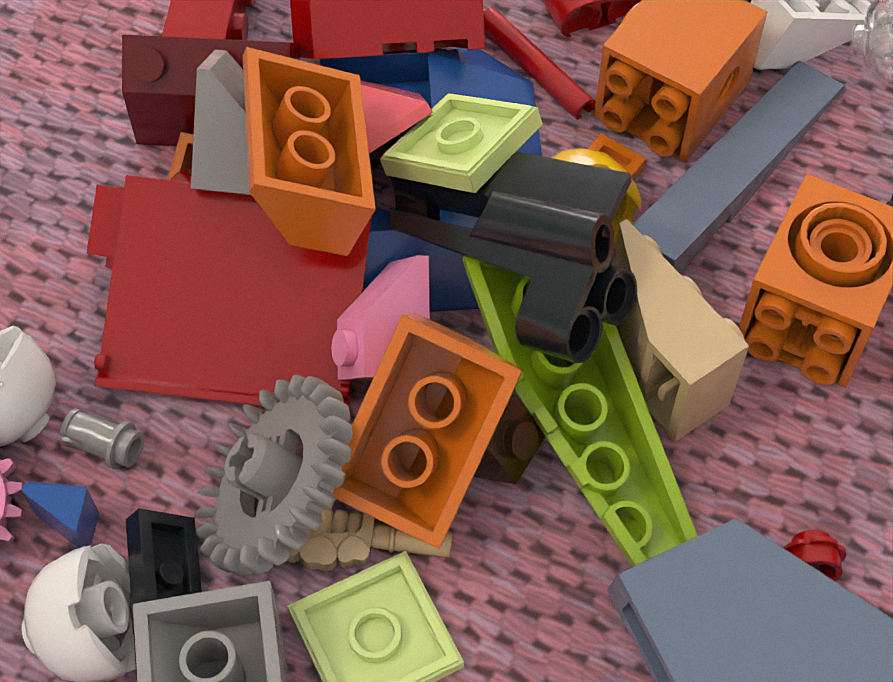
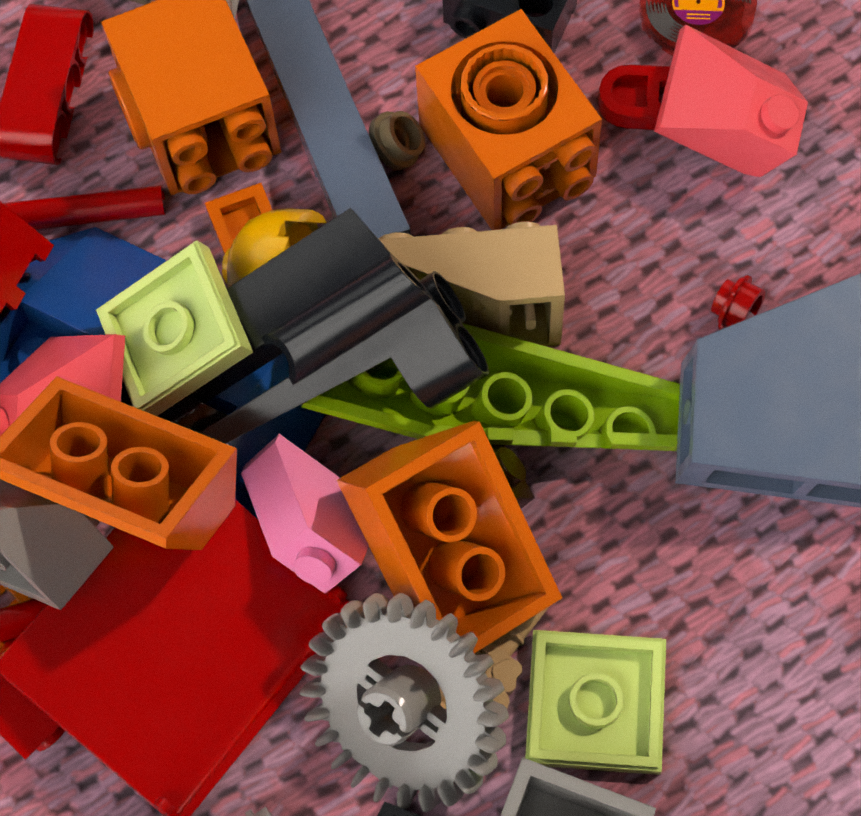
camera: 55 degrees left, 10 degrees up
(765, 224) = (397, 139): none -> dark tan plate

